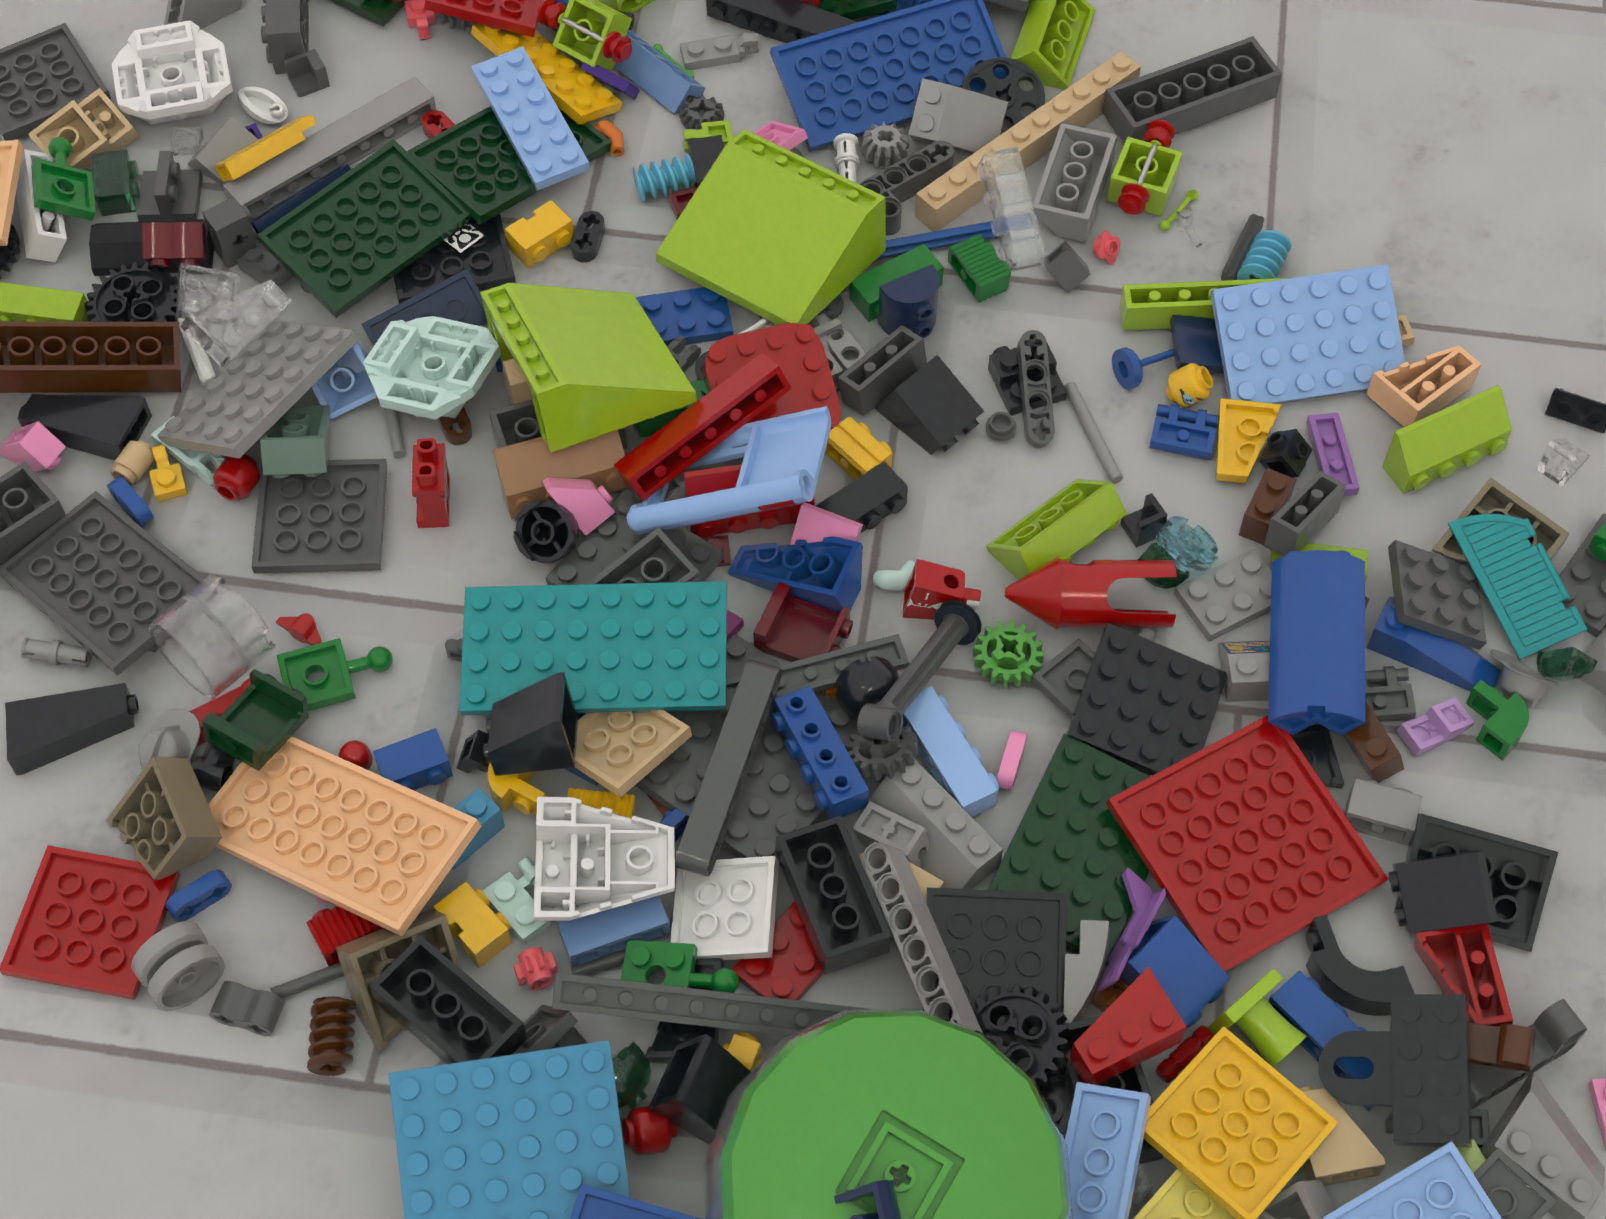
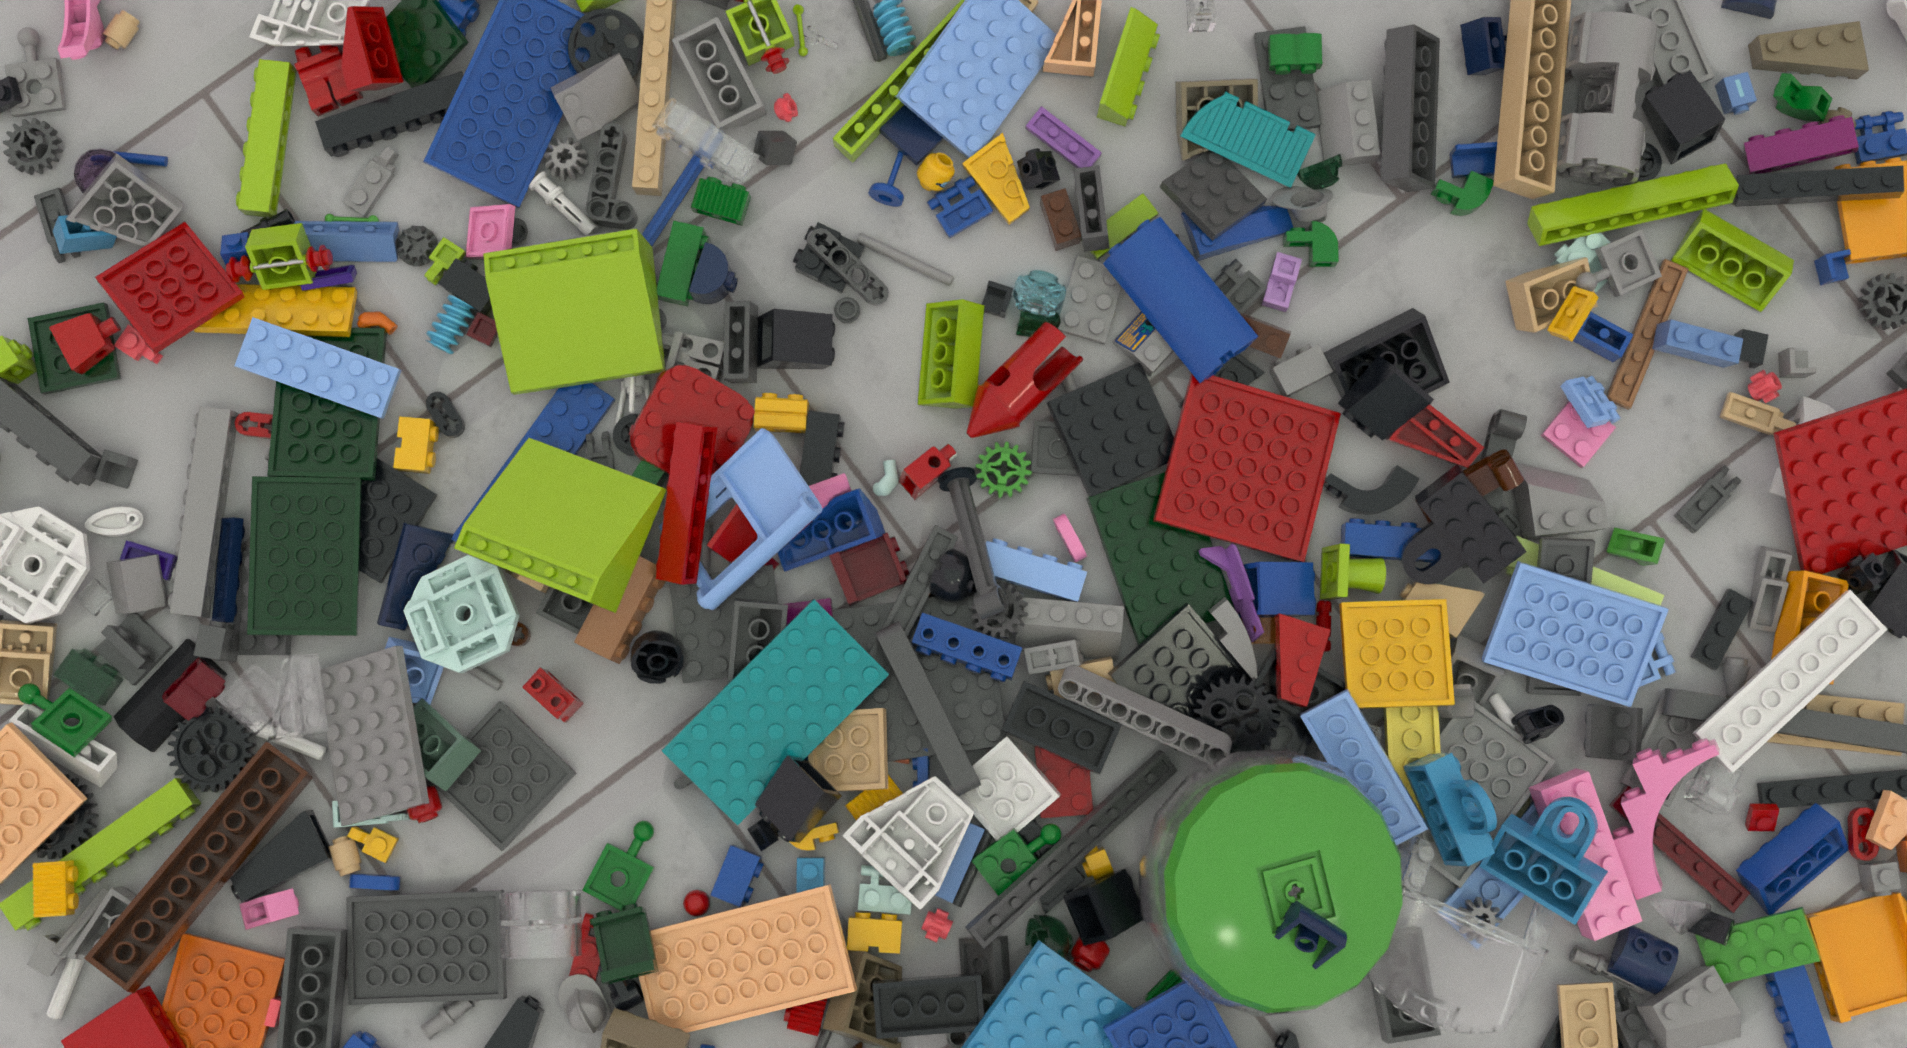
camera: 45 degrees left, 25 degrees up
(264, 149) = (166, 560): yellow hinge -> none
(301, 628) = (575, 856): red piece -> none
(463, 238) = (371, 496): sticker -> none
(583, 499) = (655, 617): bright pink slope -> none

